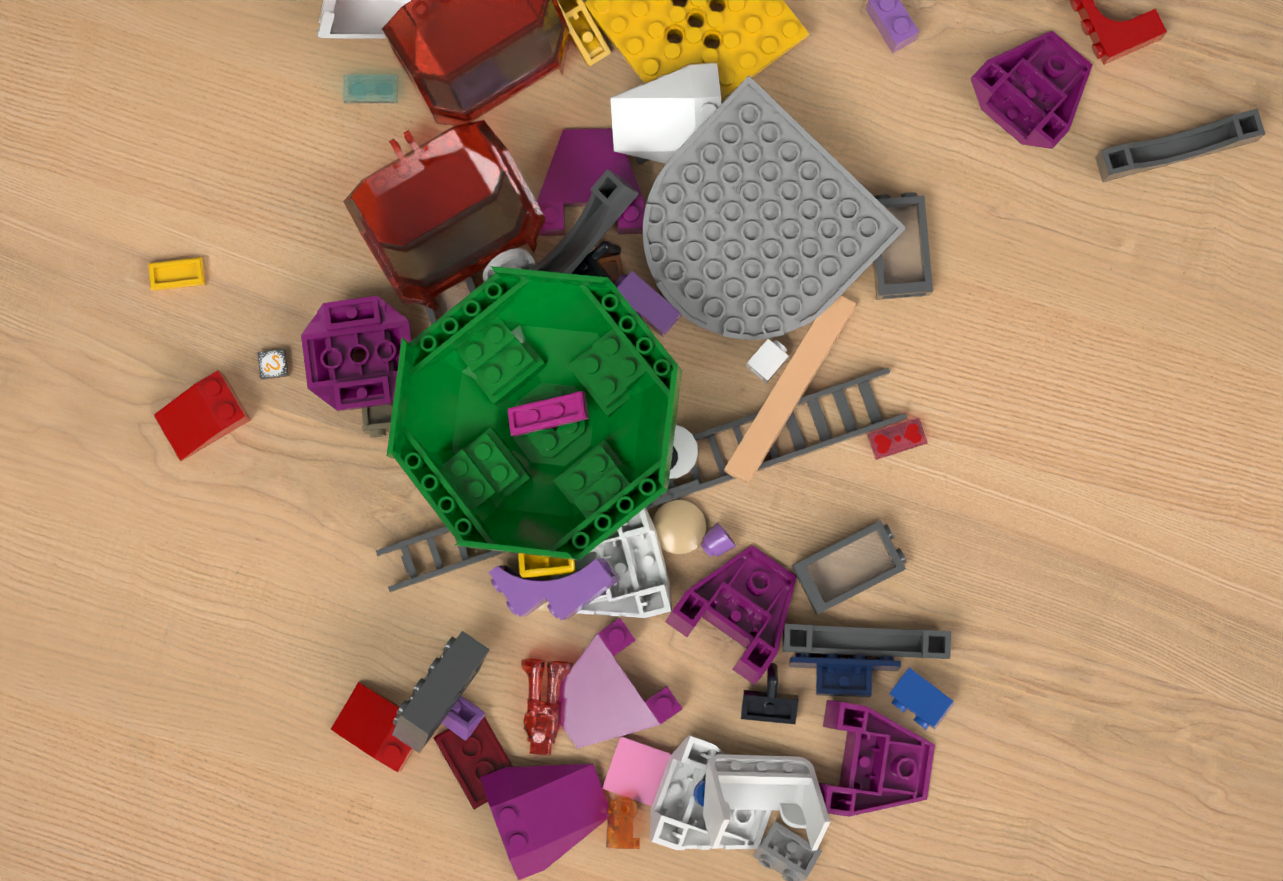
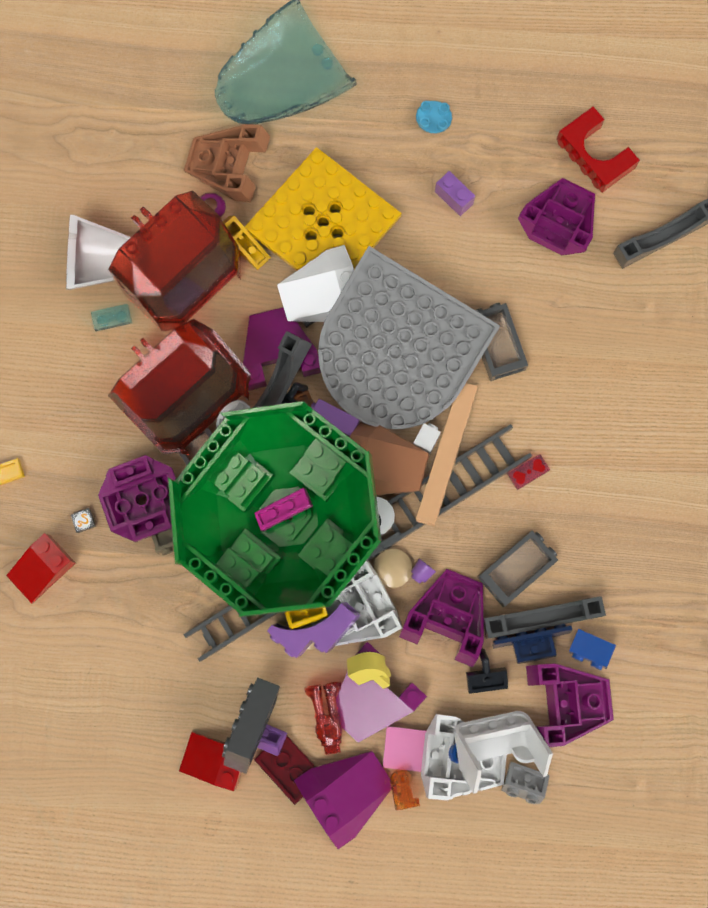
camera: 15 degrees left, 5 degrees down
(613, 652) = (368, 667): none -> light yellow brick
(715, 382) = (396, 462): none -> nougat wedge

